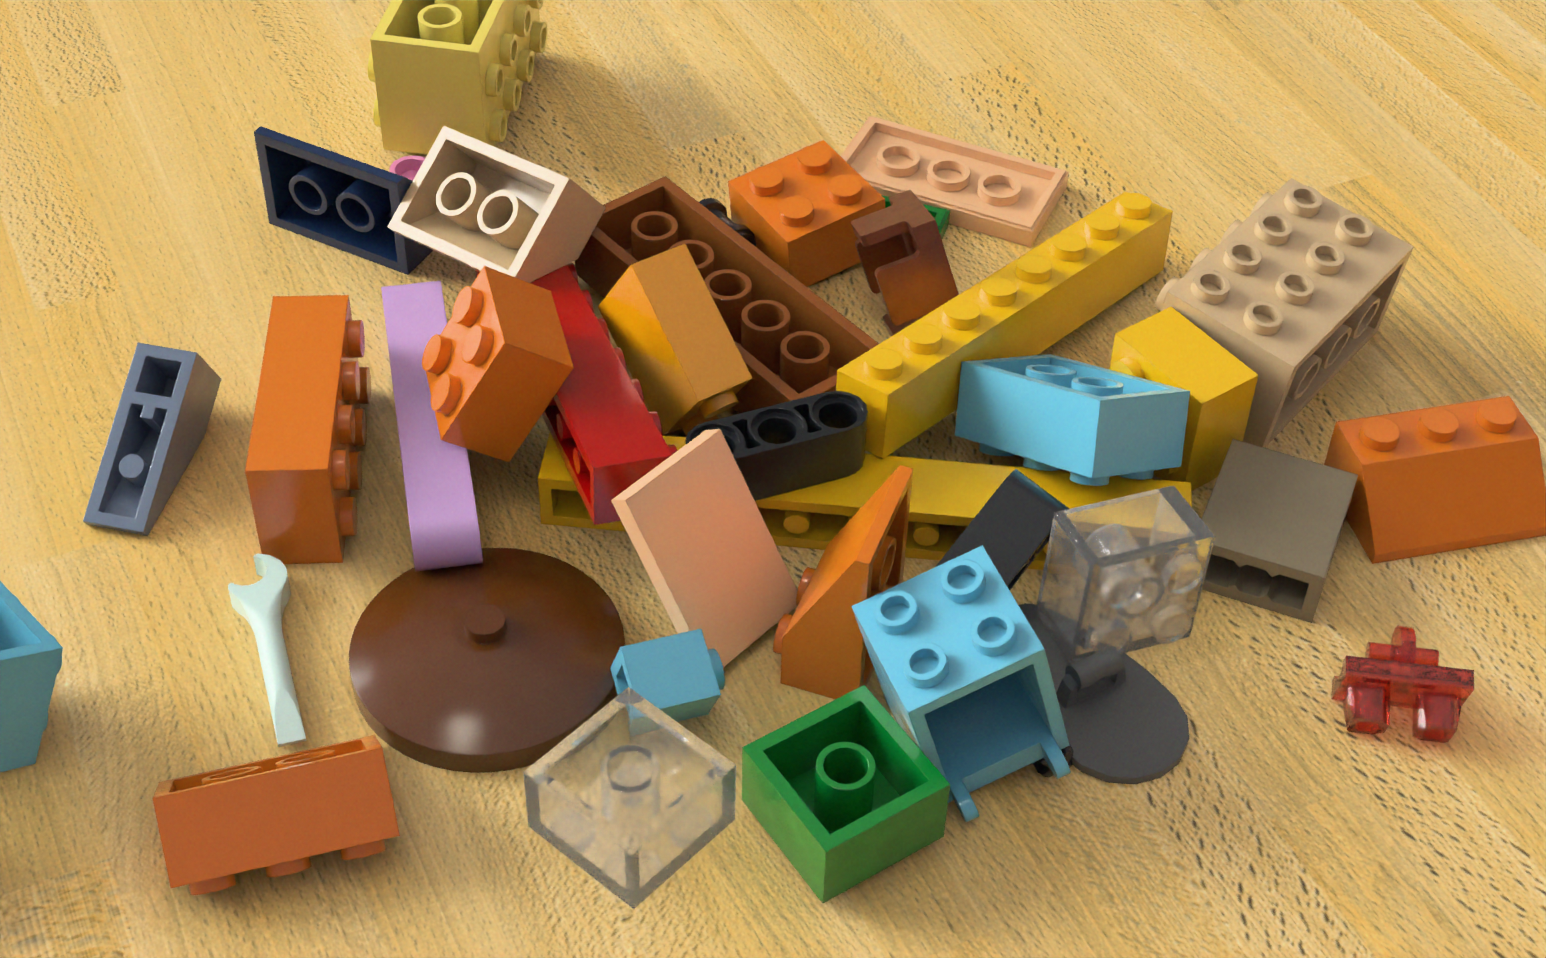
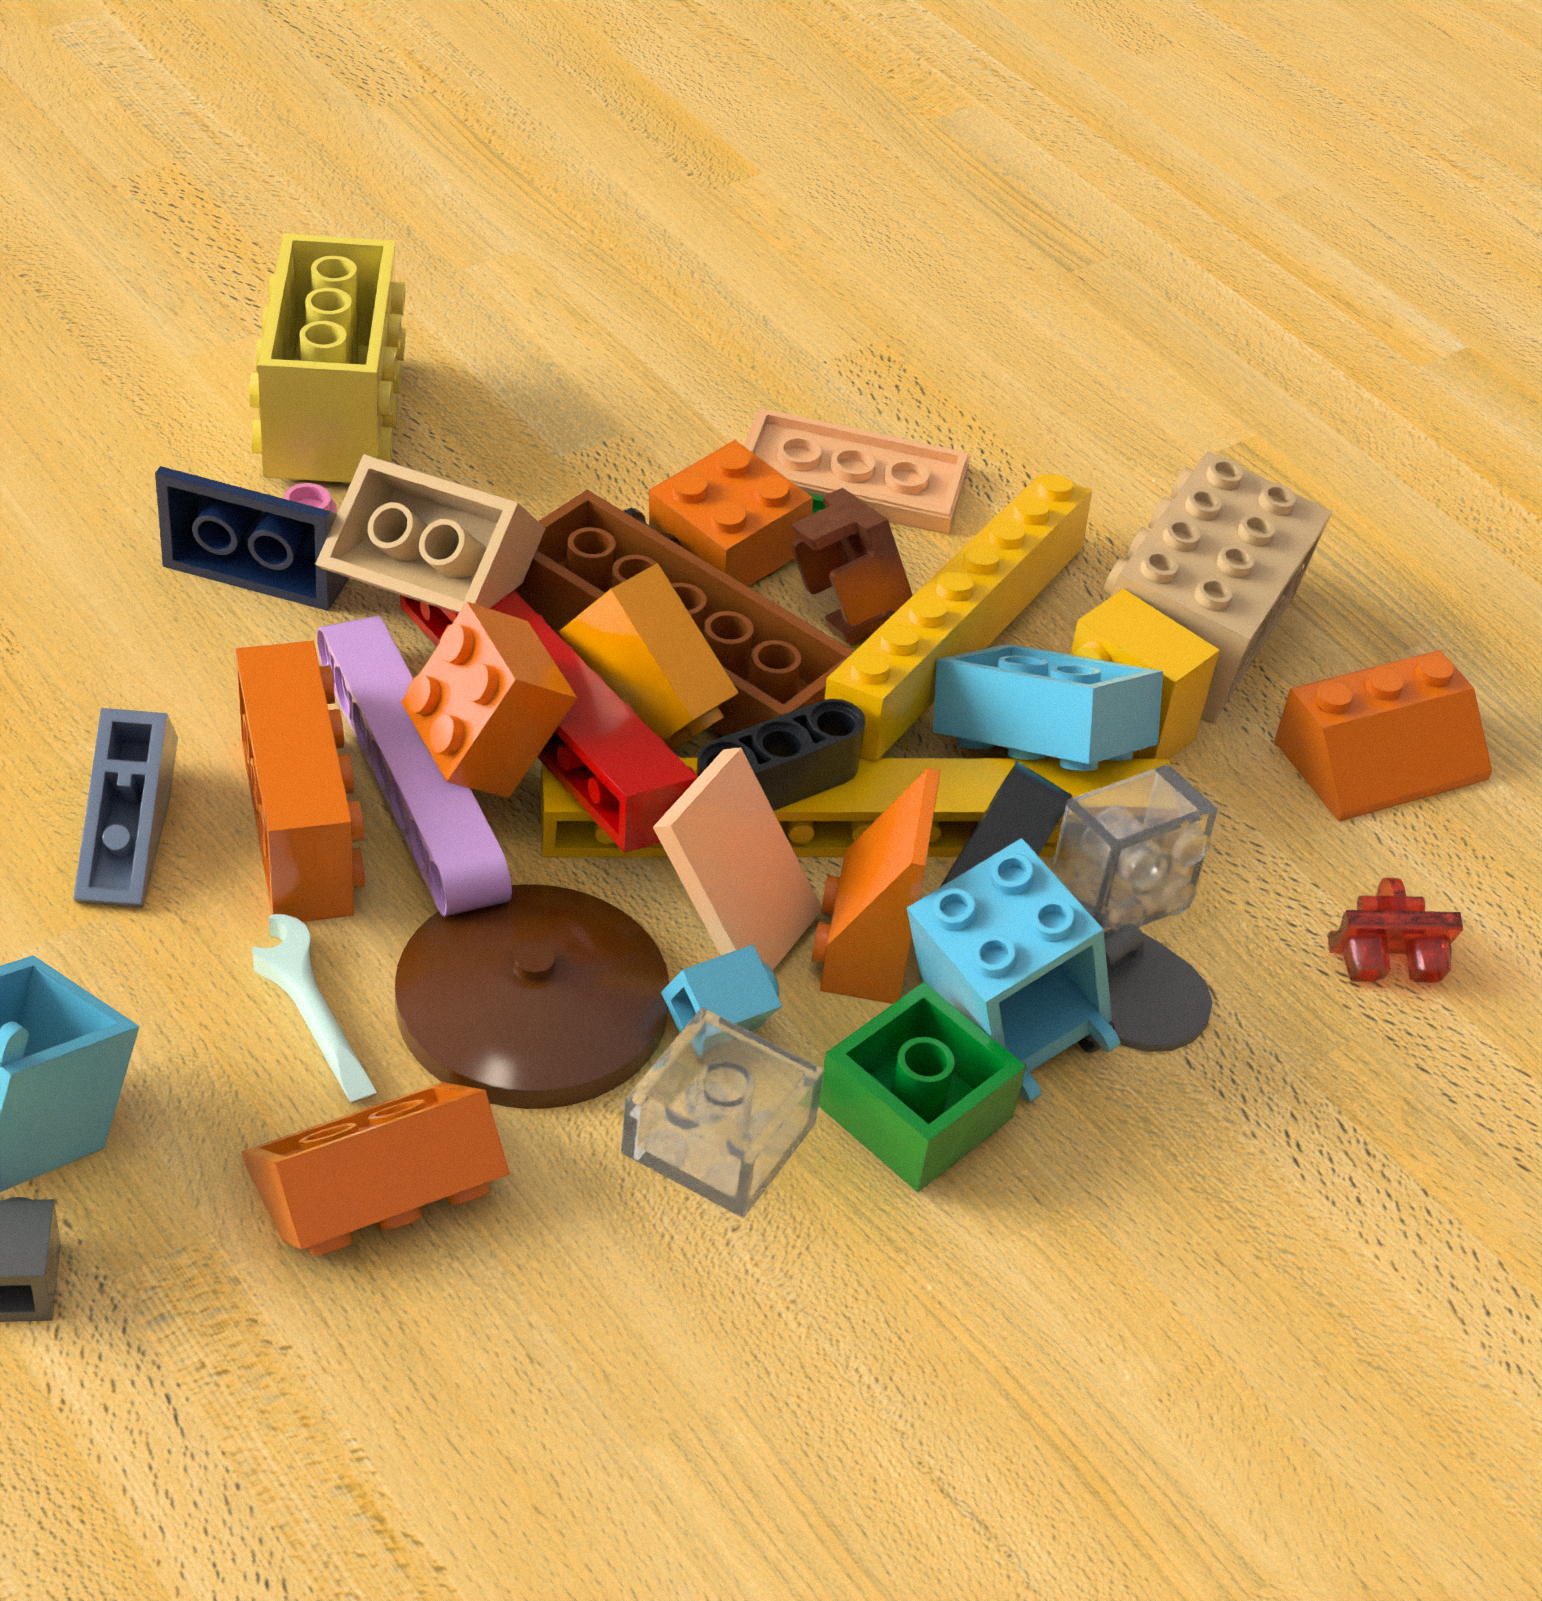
camera: 15 degrees left, 0 degrees up
(1275, 528) = (1262, 792): dark tan brick -> none

